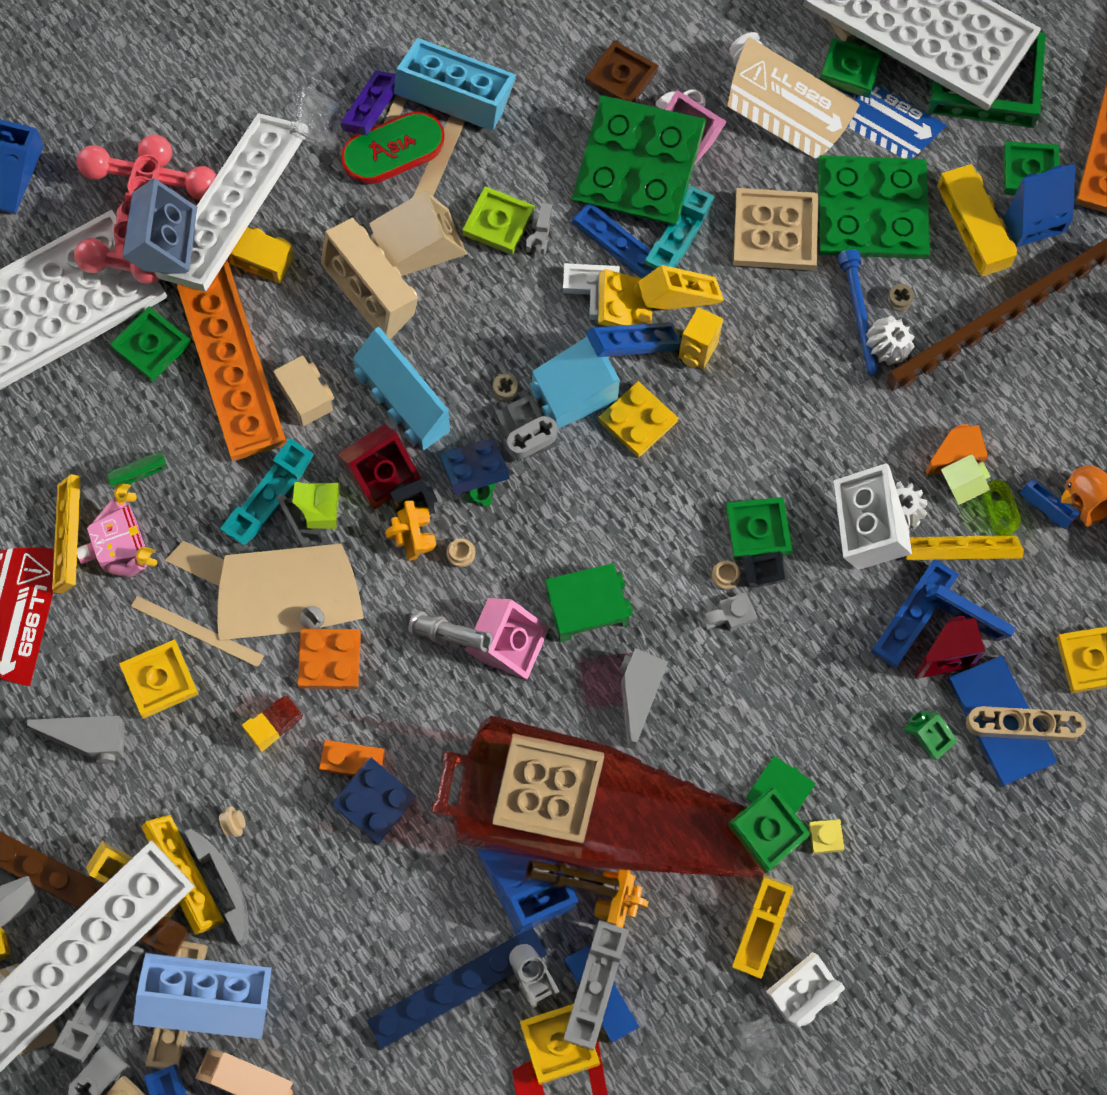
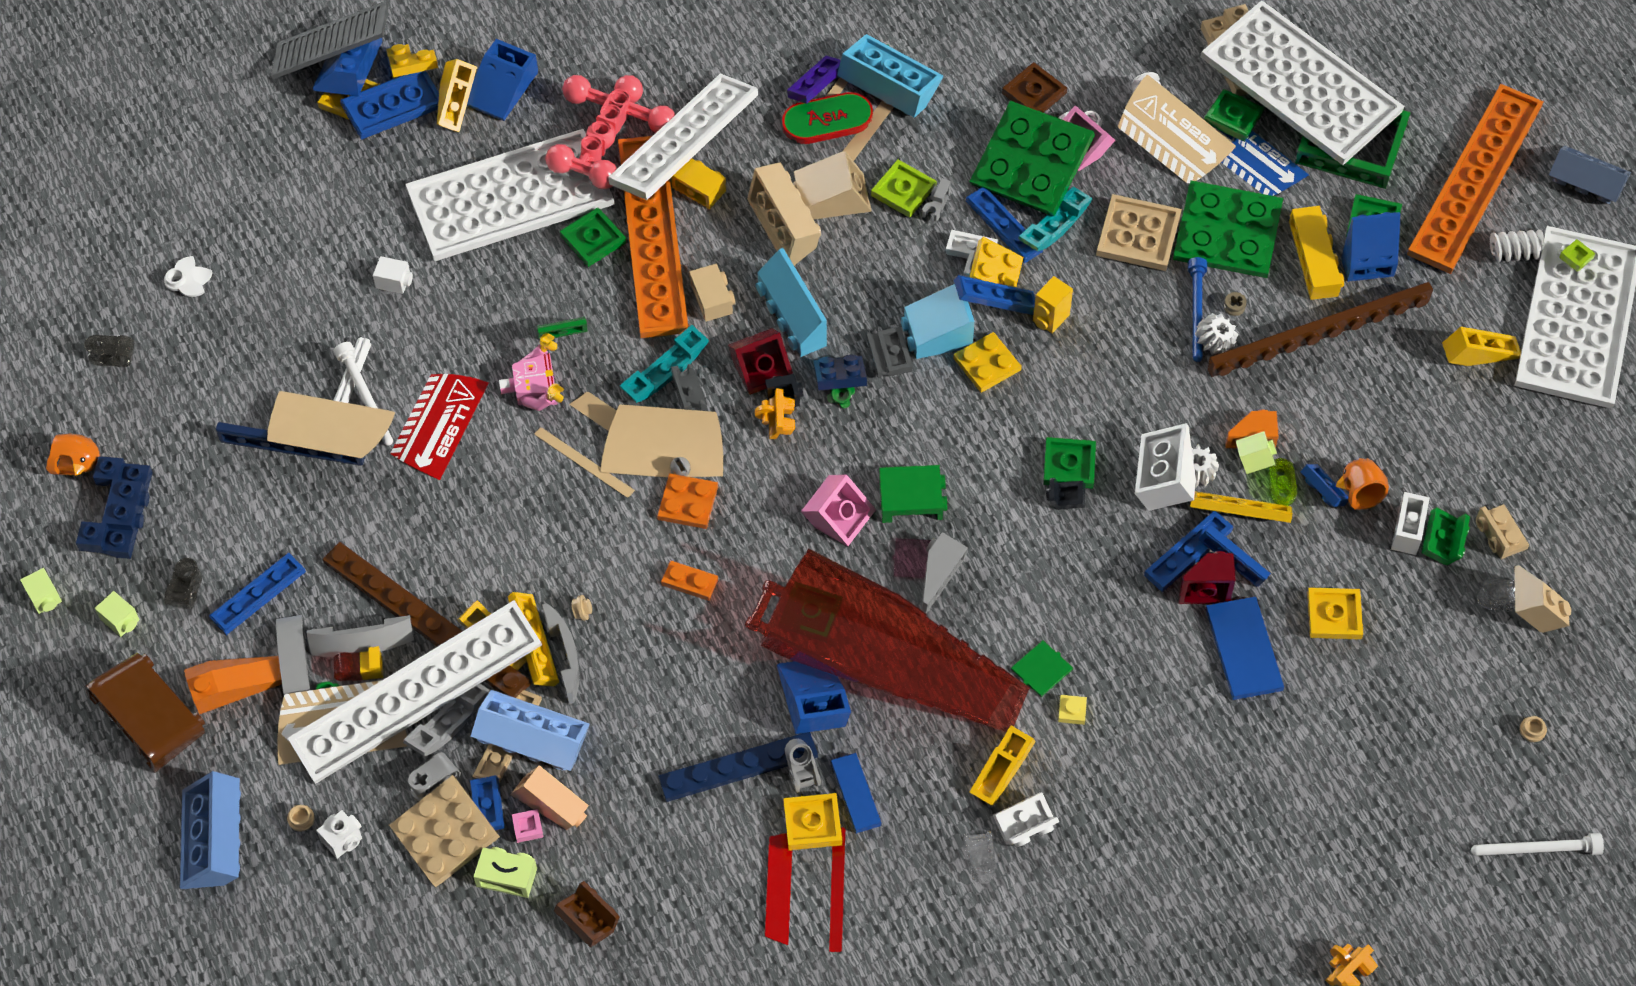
camera: 15 degrees right, 10 degrees down
(66, 534) = (494, 368): yellow tile -> none
(91, 736) = (481, 523): light grey slope -> none
(159, 229) = (619, 145): sand blue slope -> none
(159, 679) = (545, 491): yellow plate -> none
(272, 722) = (630, 539): leg -> none
(317, 119) = (768, 85): clear tile -> none
(318, 503) = (704, 379): lime slope -> none
(373, 800) = (700, 612): dark blue plate -> none
(439, 630) = (783, 491): light grey pin -> none
(460, 552) = (814, 439): tan plate -> none
(508, 379) = (880, 311): dark tan bush -> none
(534, 443) = (893, 358): light grey beam -> none
(540, 871) = (840, 687): dark brown pin -> none
(548, 788) = (844, 620): tan plate -> none
(596, 985) = (853, 780): light grey slope -> none
(615, 911) = (890, 725): light orange hips -> none
(677, 288) = (1042, 263): yellow slope -> none
(726, 575) = (1034, 494): tan plate -> none
(733, 611) = (1034, 524): light grey plate -> none
(769, 829) = (1024, 692): green plate -> none
(931, 733) = (1180, 645): green bracket -> none
(1025, 720) = (1261, 655): tan beam -> none

